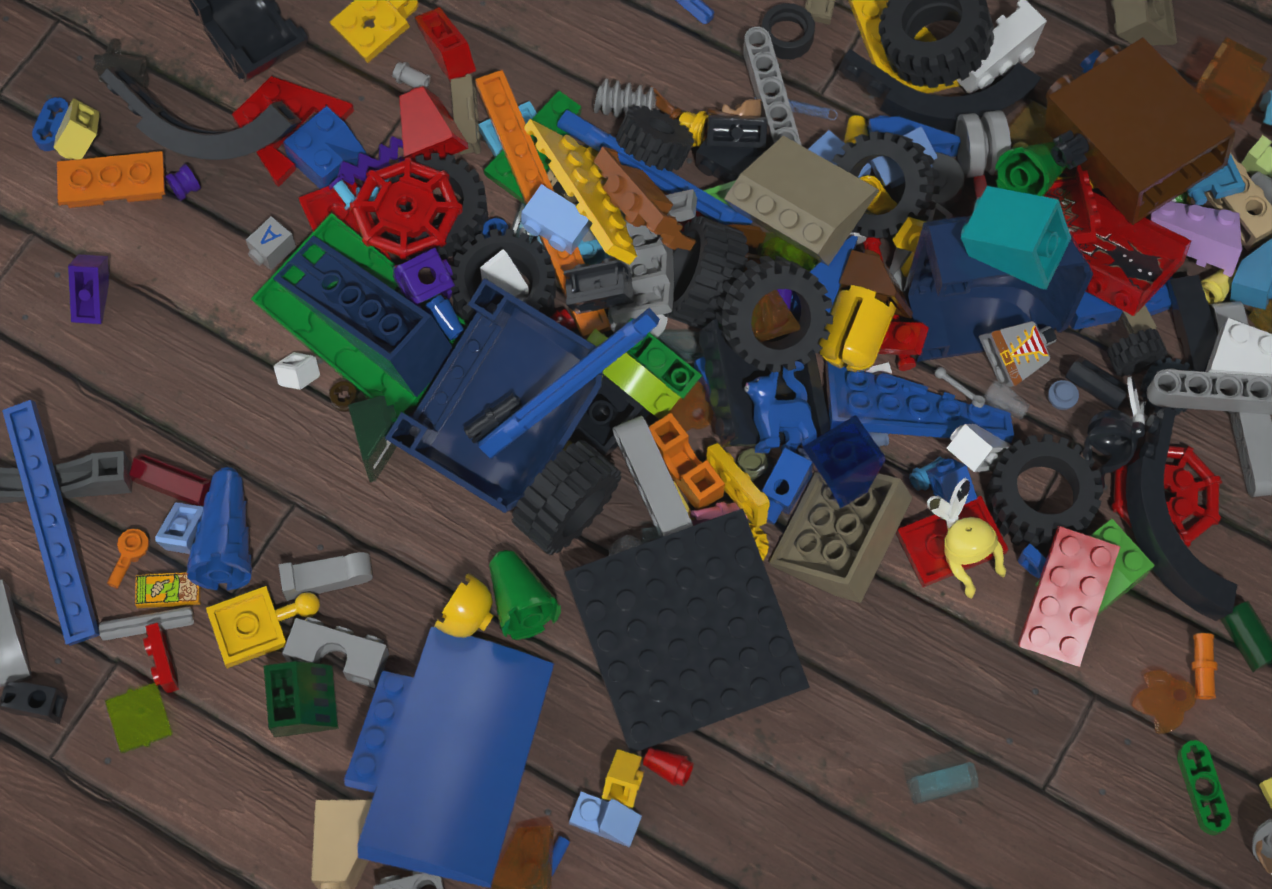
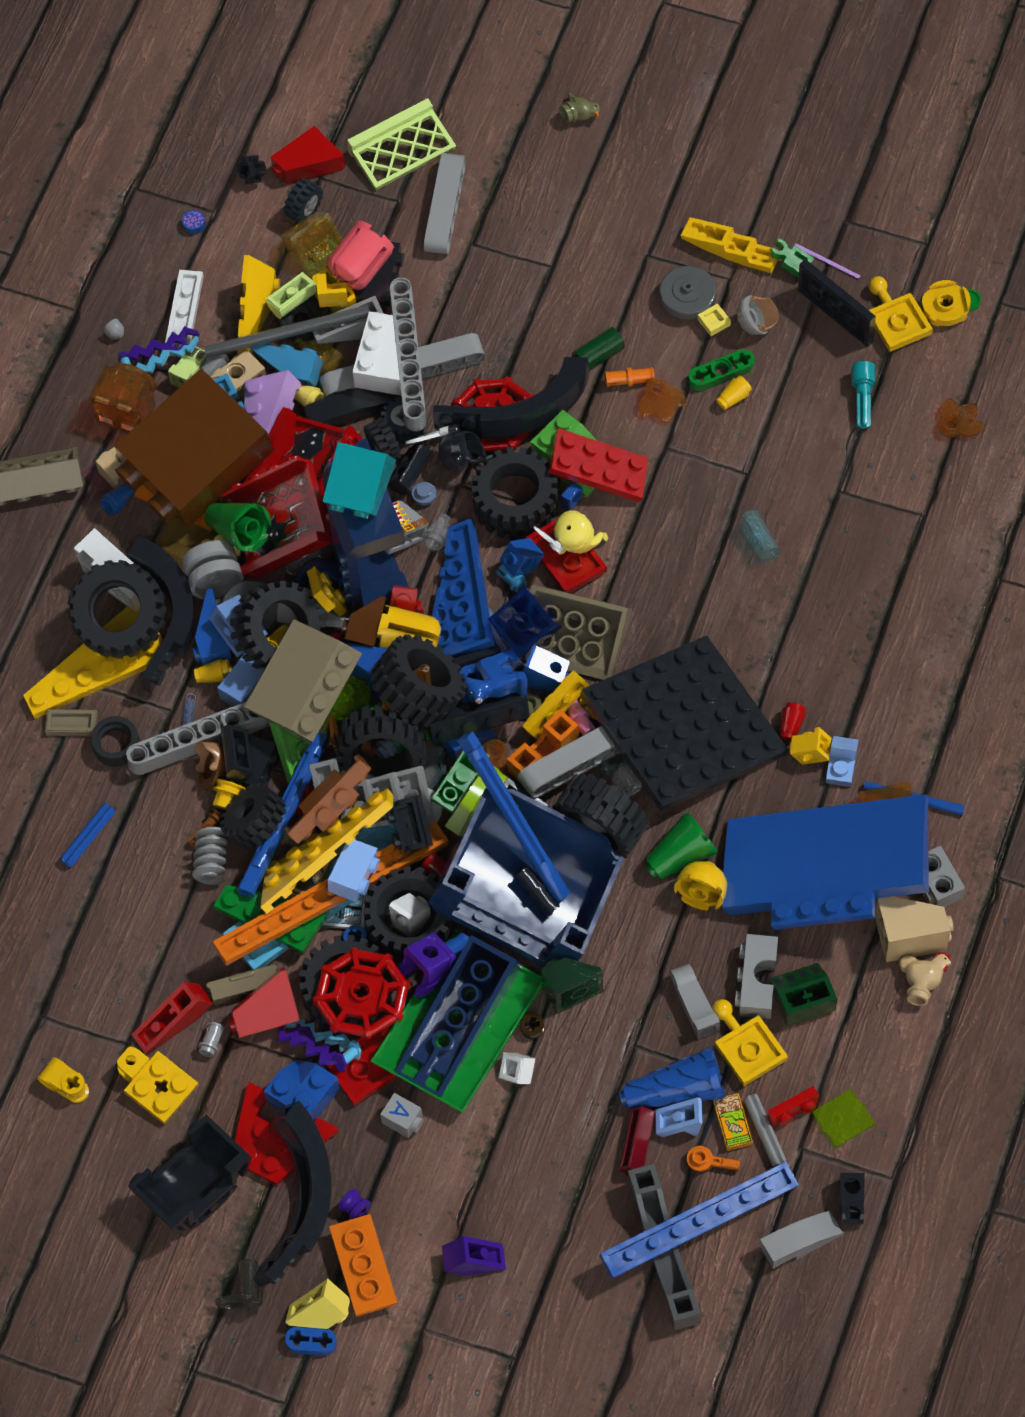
camera: 95 degrees left, 5 degrees down
(285, 851) = (923, 976): none -> tan animal
(977, 400) = (444, 549): light grey hinge -> none
(977, 447) = (491, 537): white slope -> none
(1070, 149) = (225, 491): black gear -> none
(1165, 795) = (734, 392): none -> yellow cone

